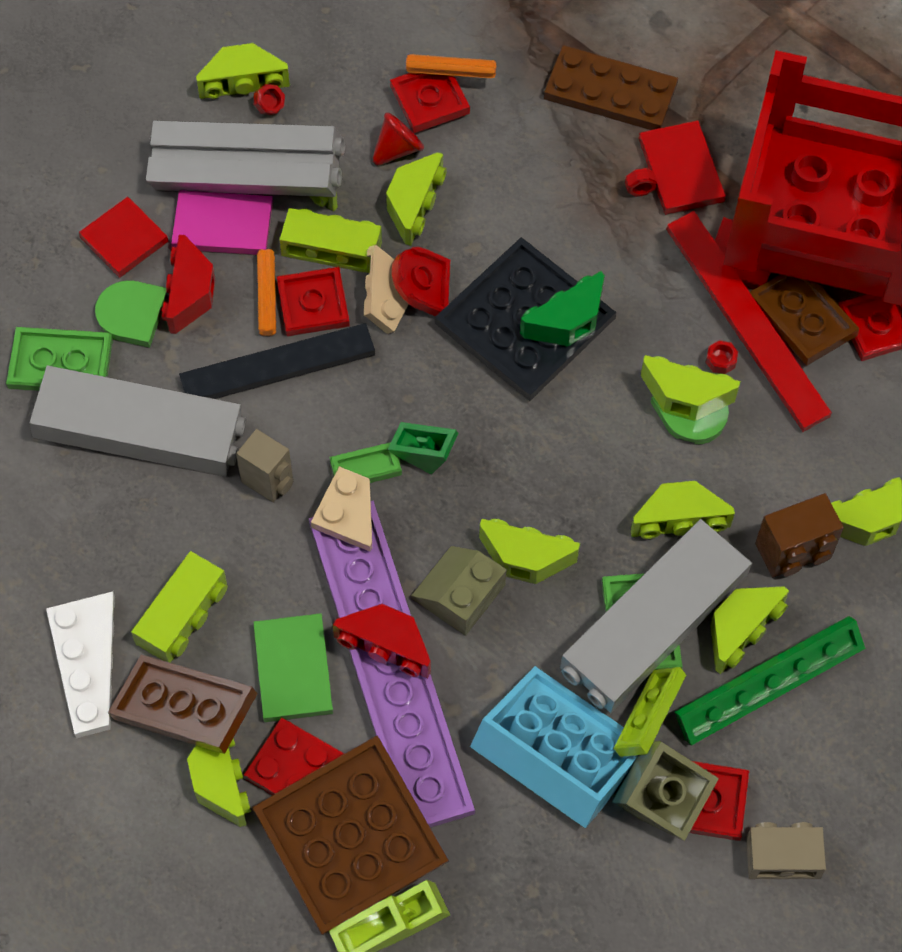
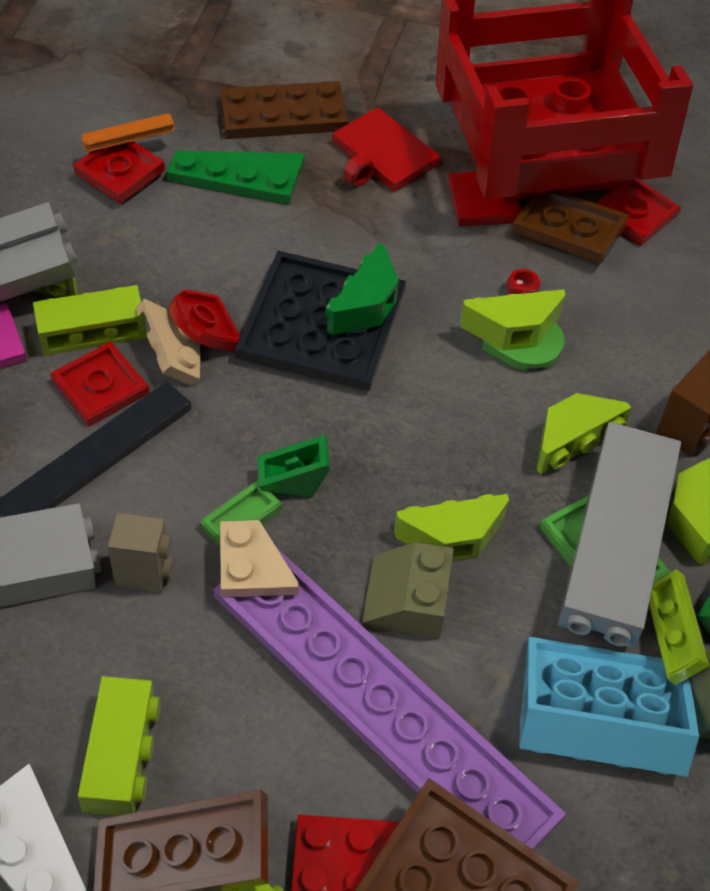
camera: 30 degrees left, 10 degrees down
(266, 292) = (47, 393): orange axle -> none
(293, 667) = (279, 754): bright green tile -> none
(386, 637) = (371, 671): red slope -> none
(395, 141) = (107, 212): red hat -> none
(413, 193) = (150, 252): lime slope -> none
(538, 144) = (246, 174): none -> green wing
(749, 322) = (528, 246): red tile -> none

